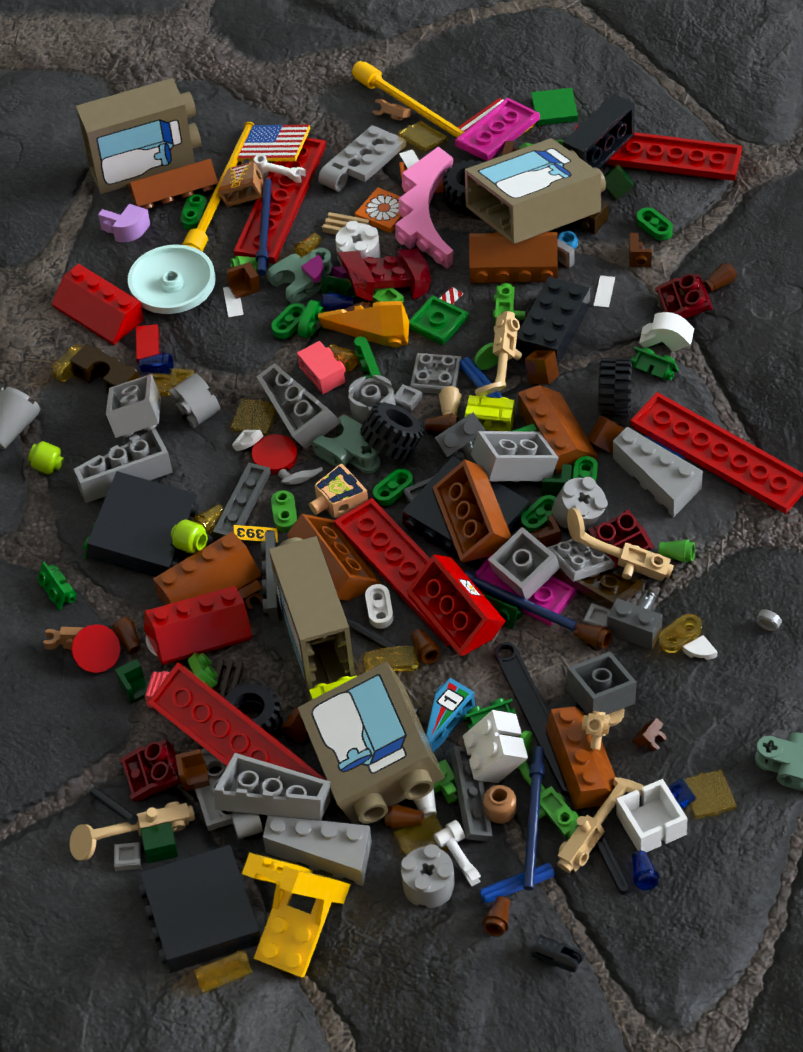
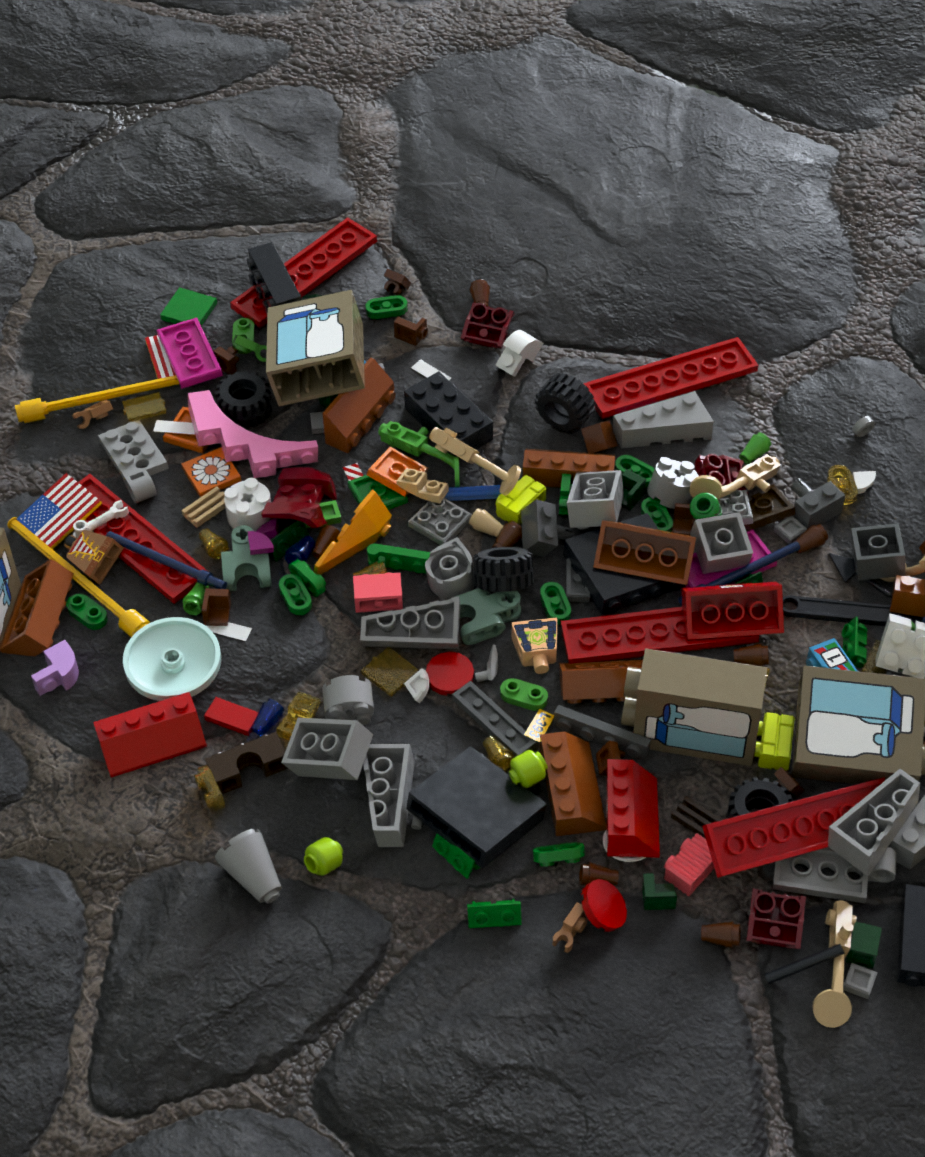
camera: 65 degrees left, 0 degrees up
(117, 741) = (722, 934): none -> reddish brown cone
(133, 599) = (550, 854): none -> green plate
(192, 770) = (807, 881): reddish brown panel -> none
(201, 668) = (674, 828): bright green plate -> none
(454, 340) = (418, 485): none -> tan slope
(463, 319) = (391, 466): none -> orange tile
(542, 367) = (495, 443): reddish brown panel -> none
(548, 531) = (705, 506): none -> green head
(662, 365) = (535, 377): green hinge -> none
(690, 215) = (397, 280): none -> reddish brown tile

